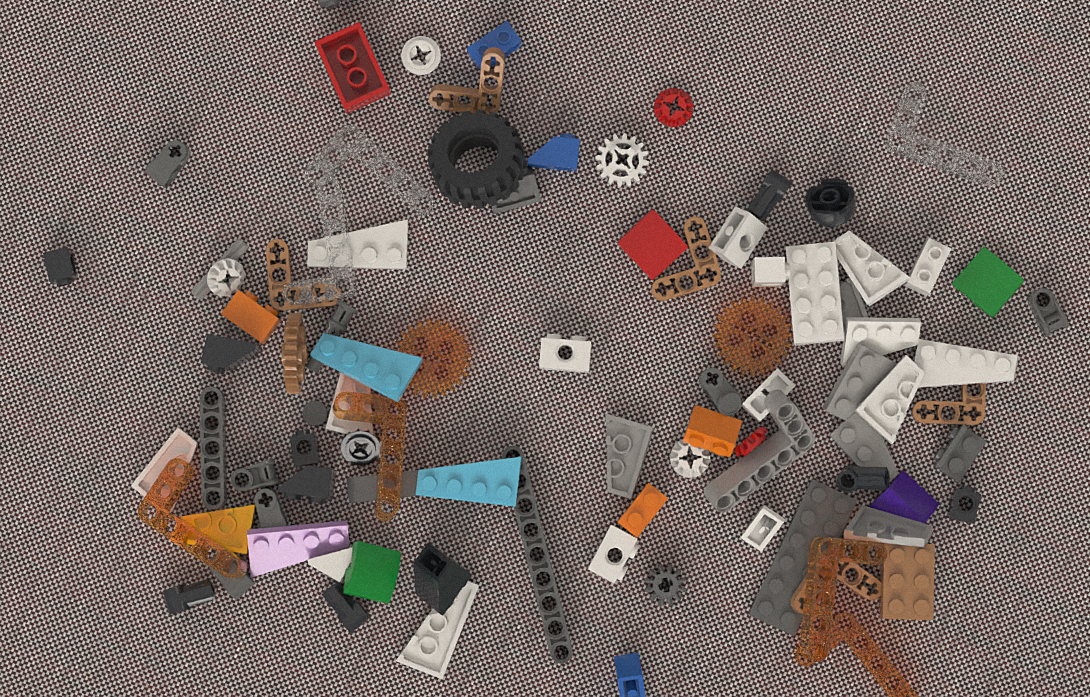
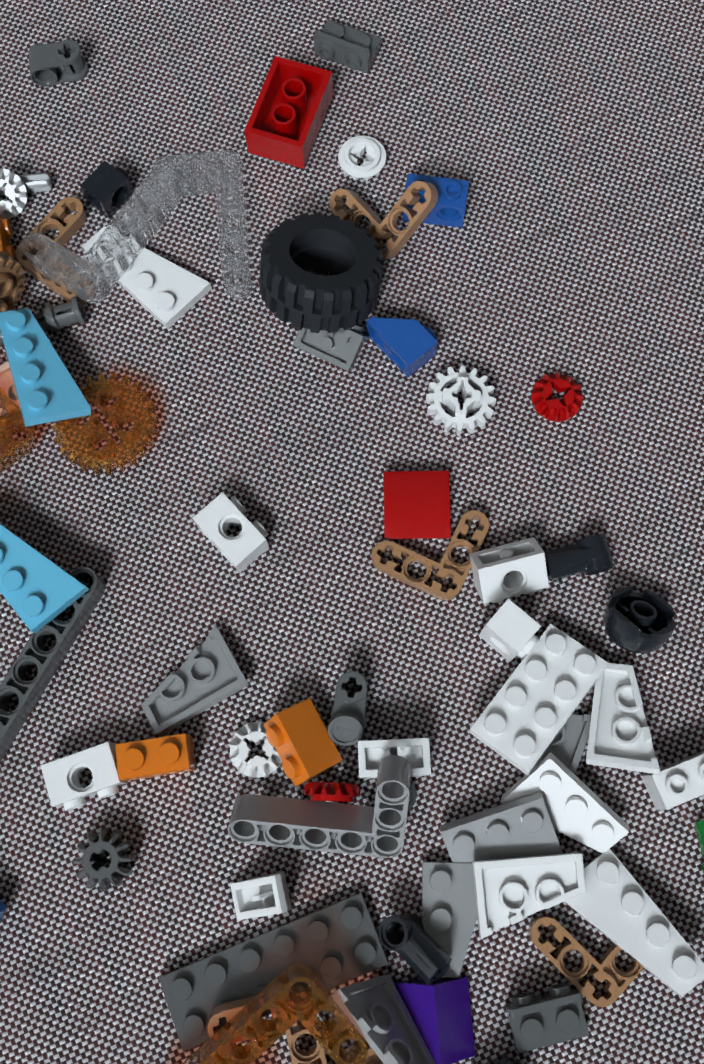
camera: 40 degrees right, 10 degrees down
(287, 216) = (107, 189): none -> black brick
(741, 355) = (464, 674): clear orange gear -> none

